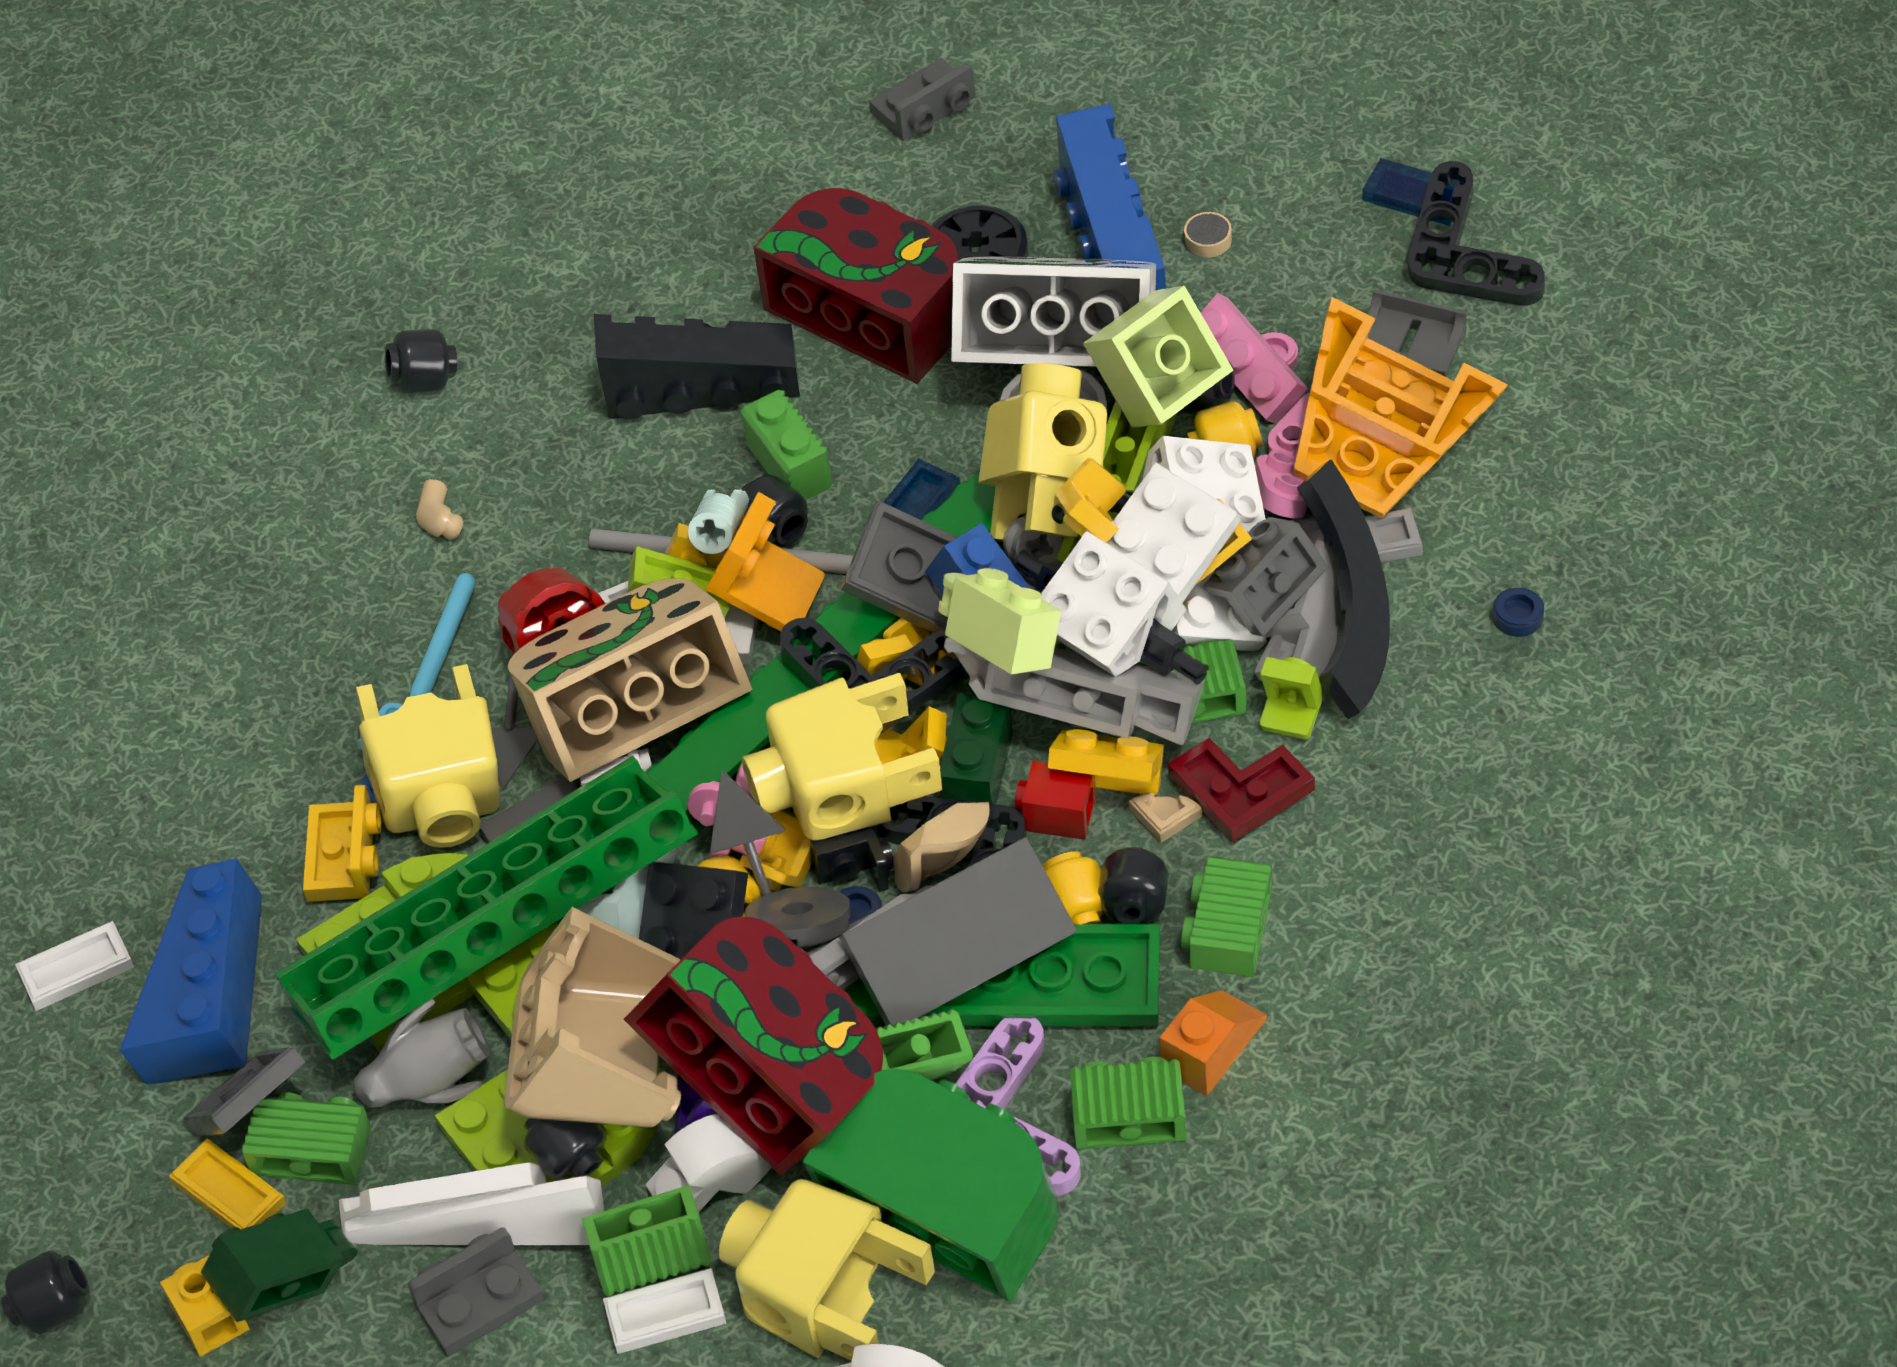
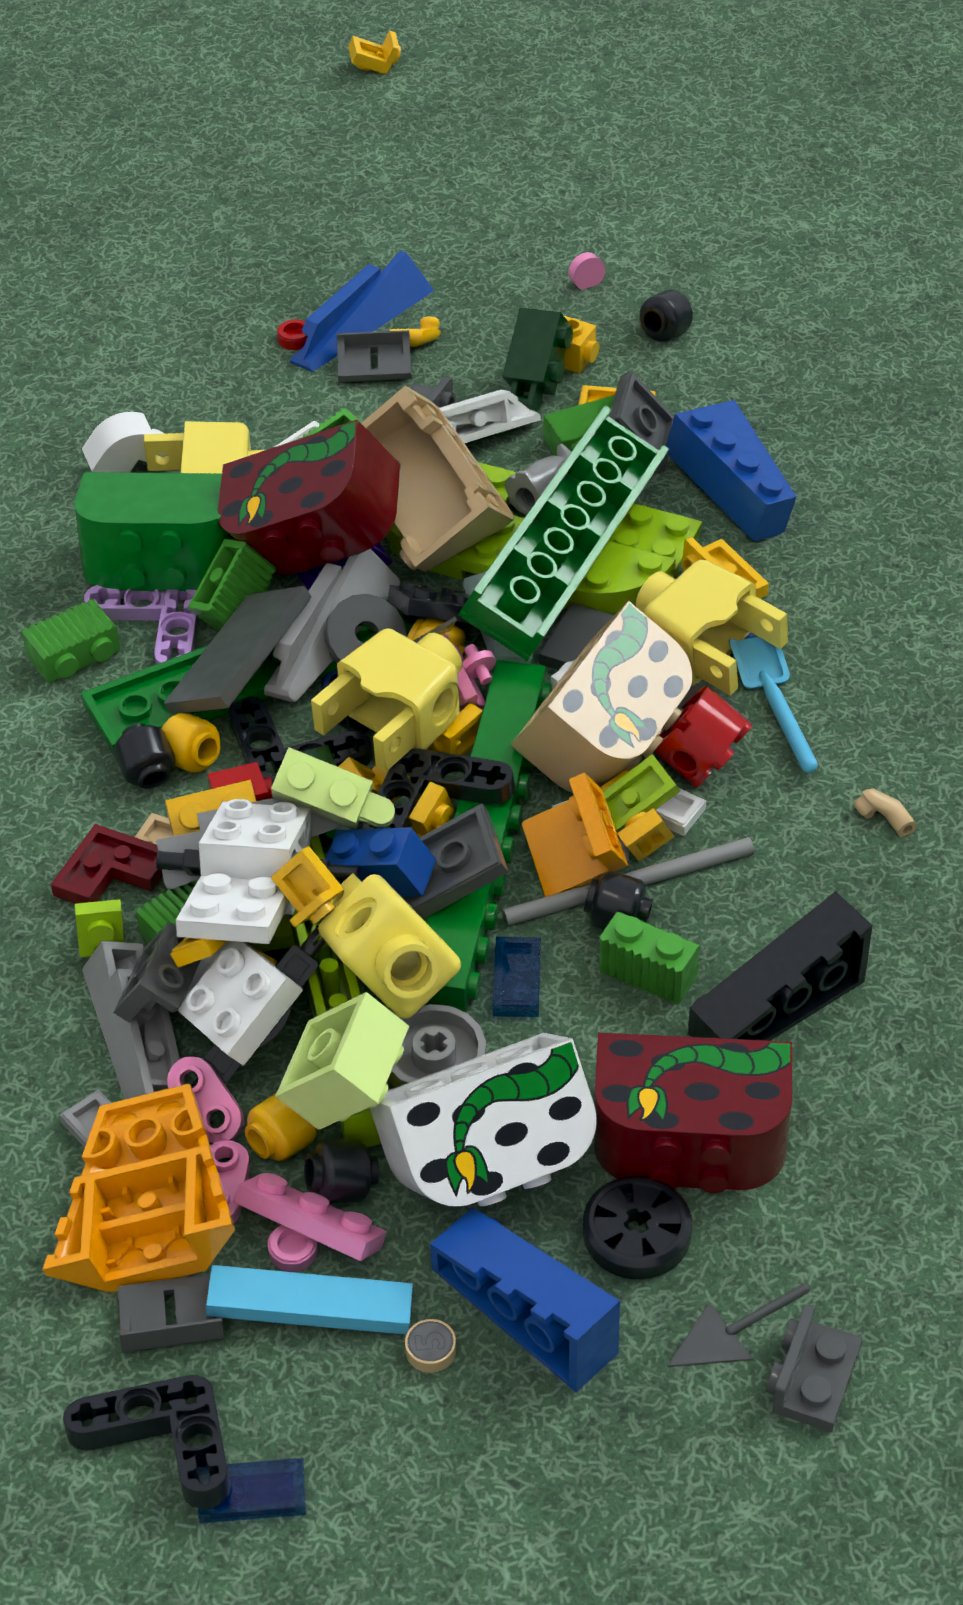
camera: 145 degrees right, 5 degrees down
(74, 965) = (831, 463): white tile -> none
(717, 520) = (629, 825): light aqua hinge -> none
(939, 844) = (288, 700): tan hat -> none
(975, 157) = (715, 1341): none -> dark grey piece
(1209, 1037) = (36, 698): orange slope -> none
(1229, 916) = (66, 775): bright green brick -> none
(1277, 287) = (309, 1299): none -> medium azure tile
(1364, 646) = (84, 1036): black tile -> none

